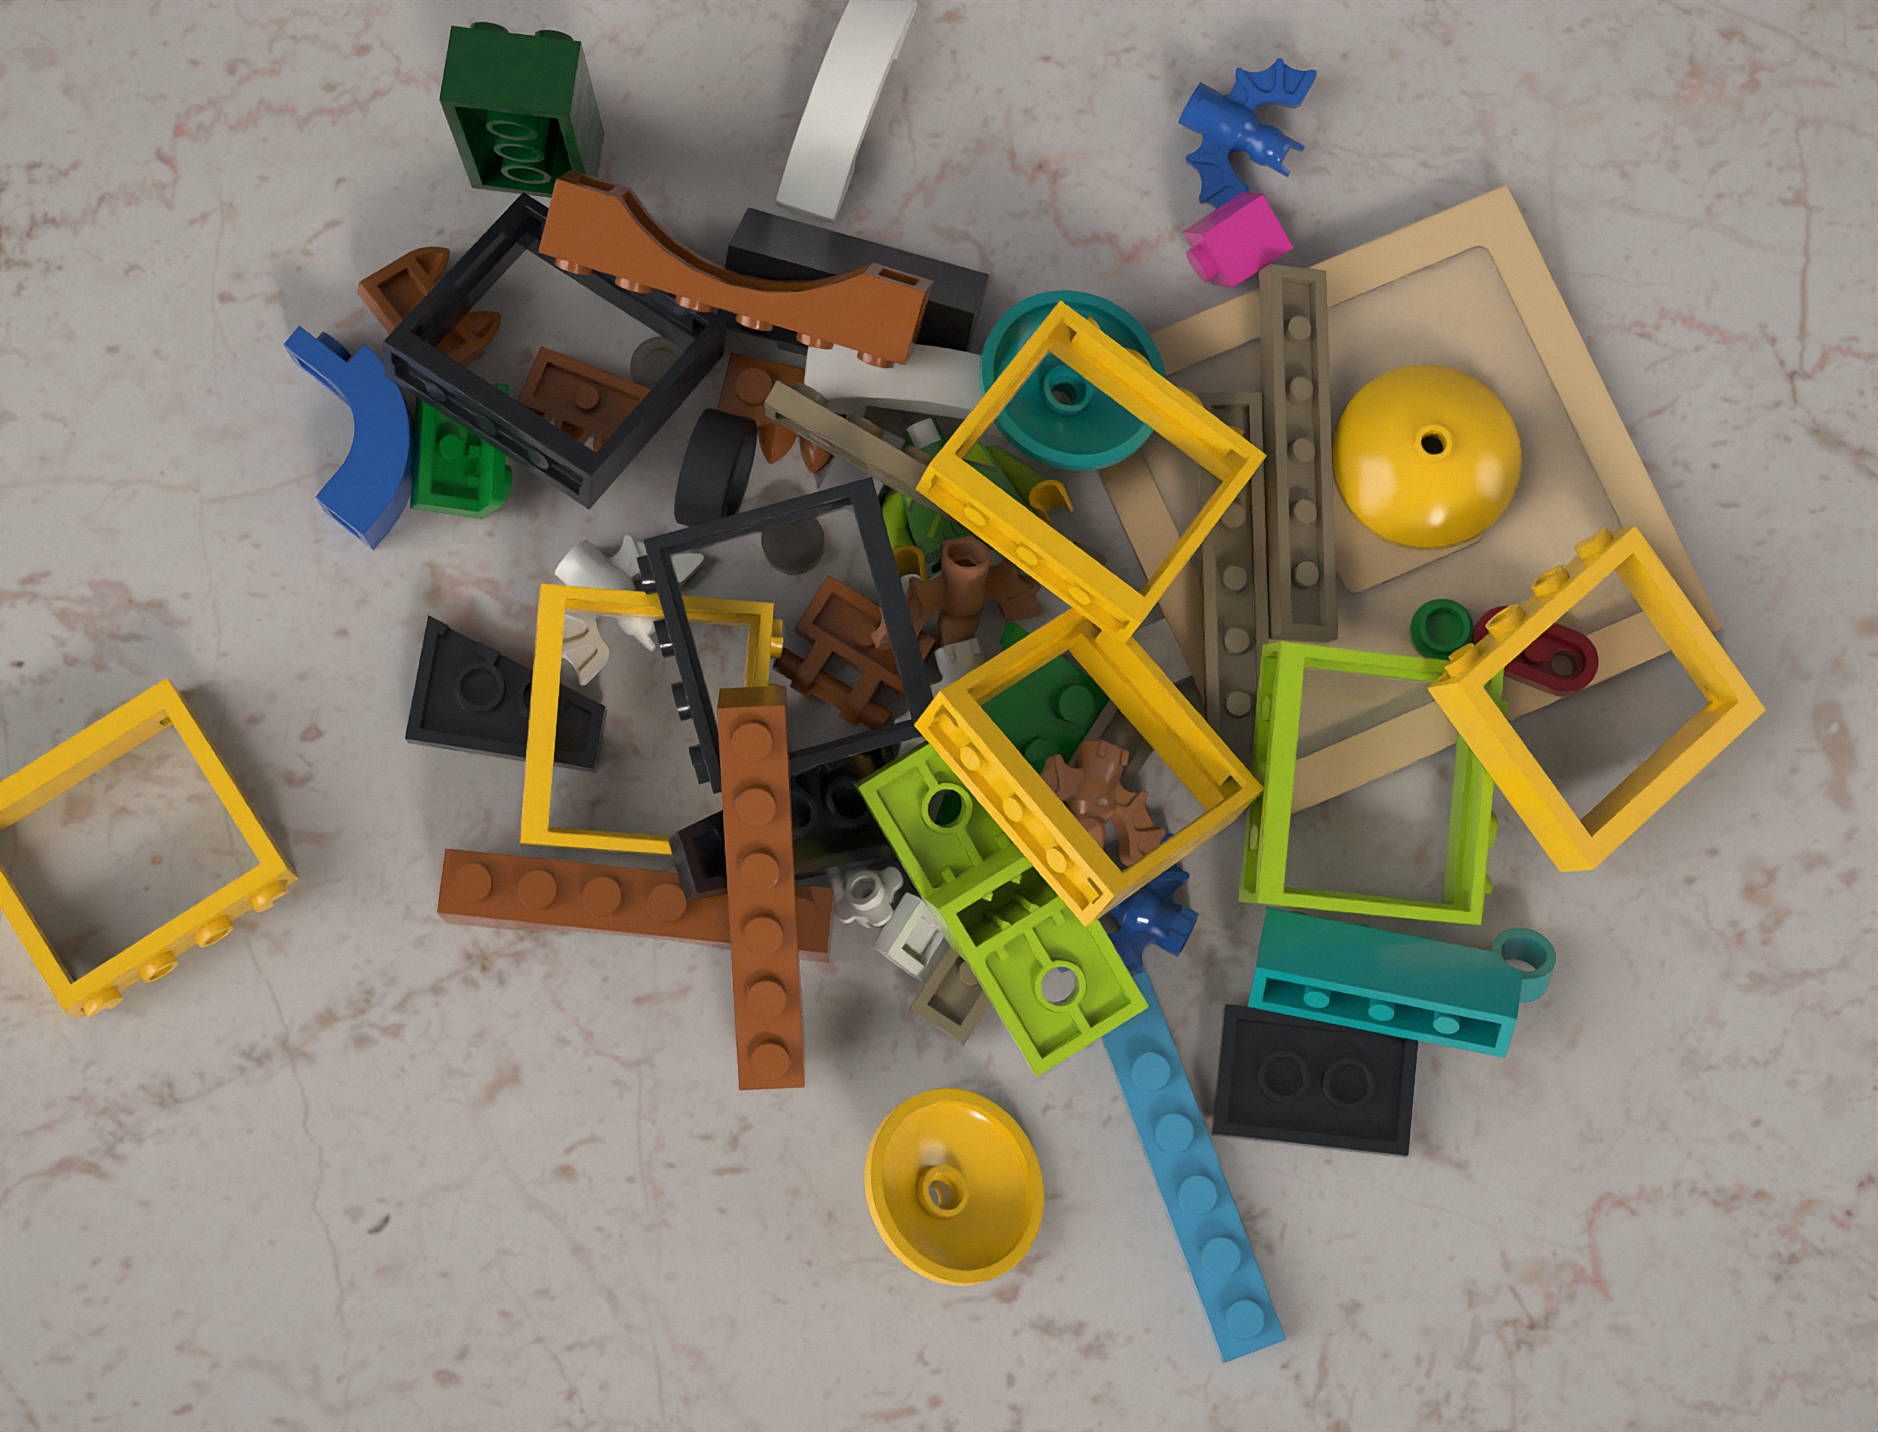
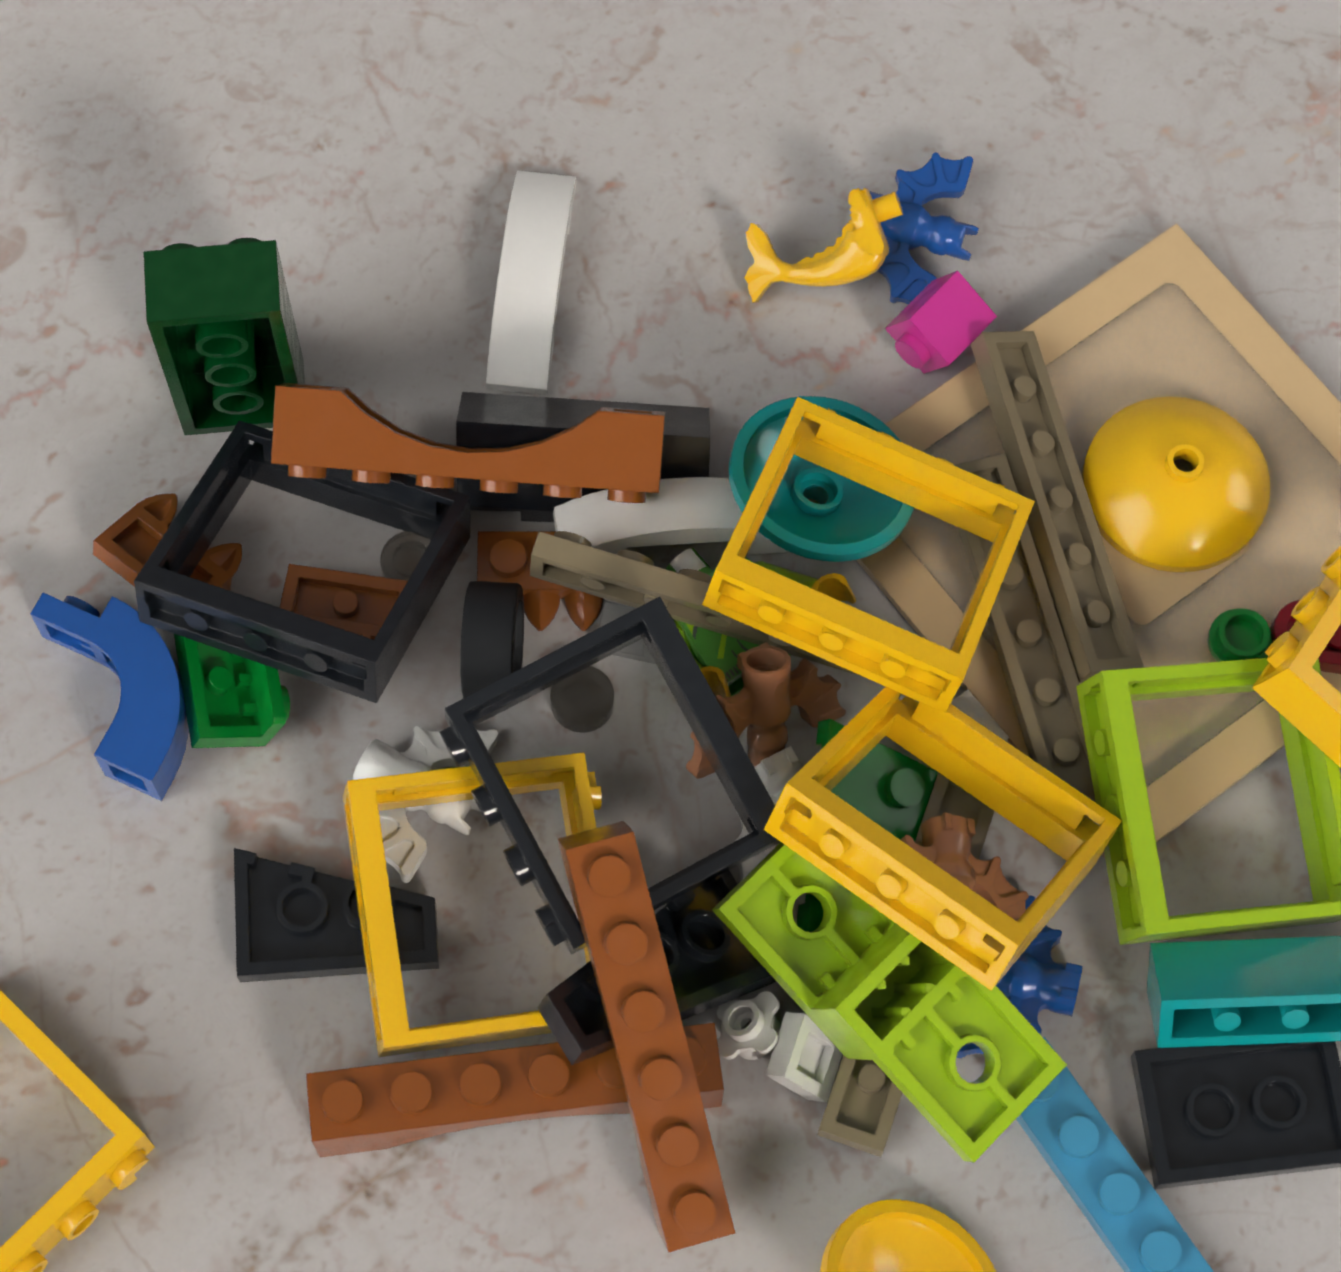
camera: 15 degrees left, 10 degrees down
(841, 626) = (653, 768): dark orange plate -> none
(1164, 154) = (851, 259): none -> yellow animal

